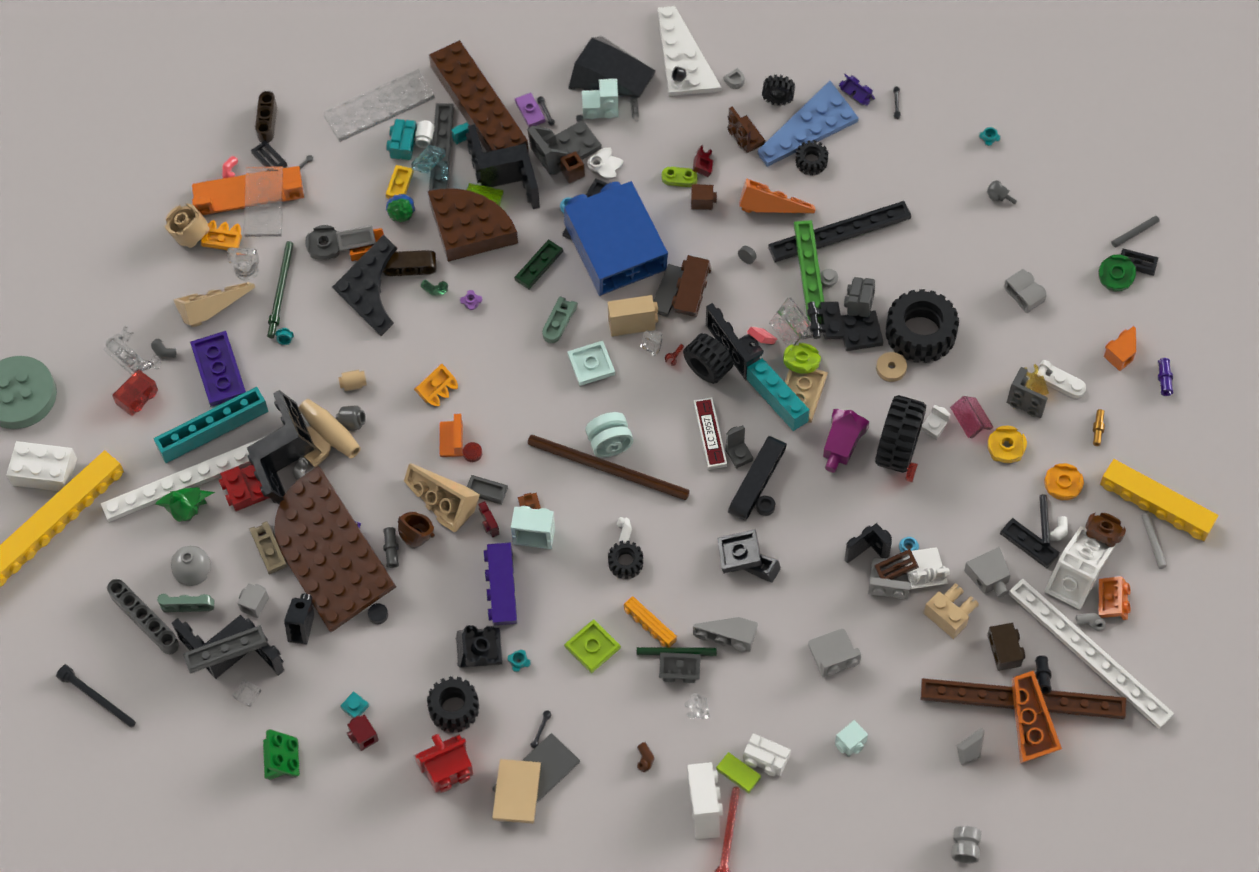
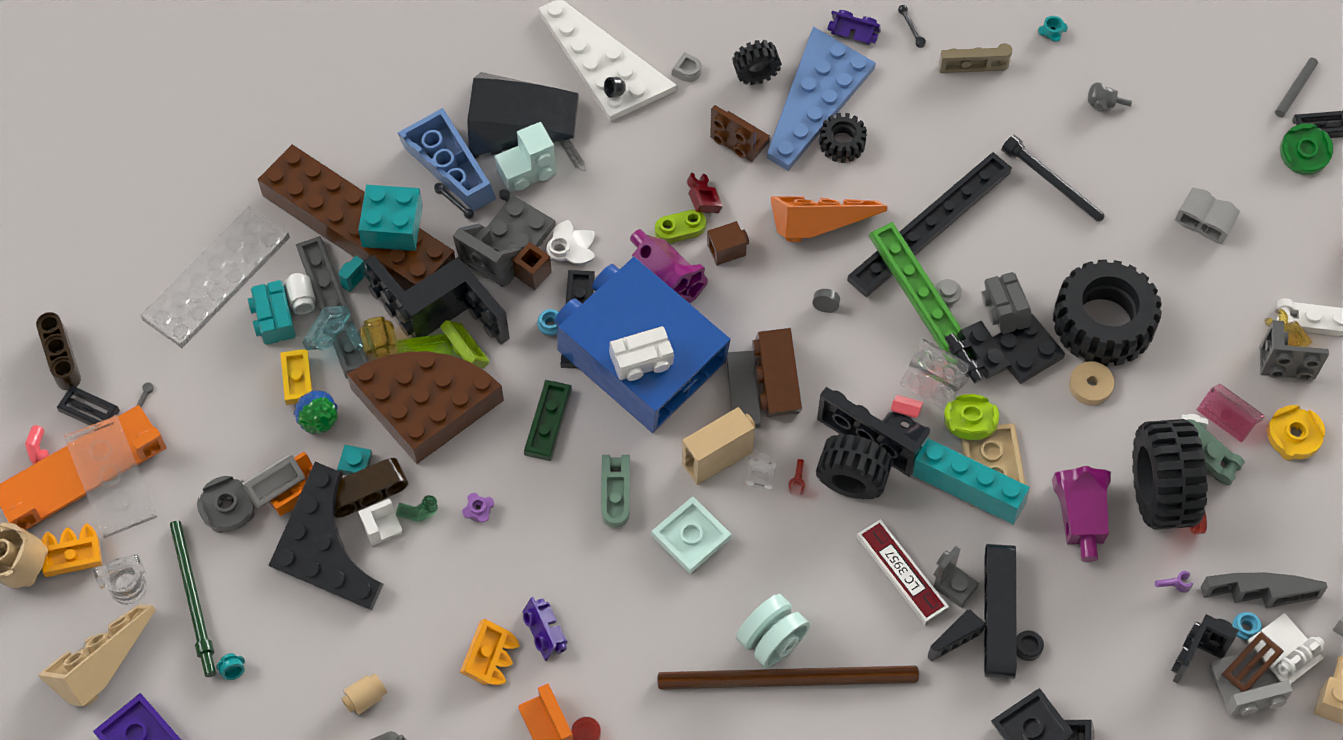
camera: 25 degrees left, 0 degrees up
(408, 286) = (380, 522): none -> white panel
(411, 243) = (354, 459): none -> teal plate
(458, 176) = (378, 336): none -> clear yellow head
(476, 376) = (538, 617): none -> dark purple hinge
(495, 105) = (390, 217): none -> teal brick
(509, 200) = (464, 344): none -> lime plate
(530, 110) = (436, 209): medium lavender plate -> none
(552, 78) = (444, 153): none -> medium blue wedge
(605, 240) = (641, 354): none -> white brick
(656, 198) = (669, 265): none -> magenta piece
(723, 481) = (960, 632): none -> black slope
(883, 501) = (1182, 587): none -> medium lavender hand
(921, 203) = (1015, 148): none -> black piece
(925, 138) = (975, 59): none -> dark tan plate
(939, 531) = (1271, 587): none -> dark grey slope
(941, 433) = (1214, 453): none -> sand green plate

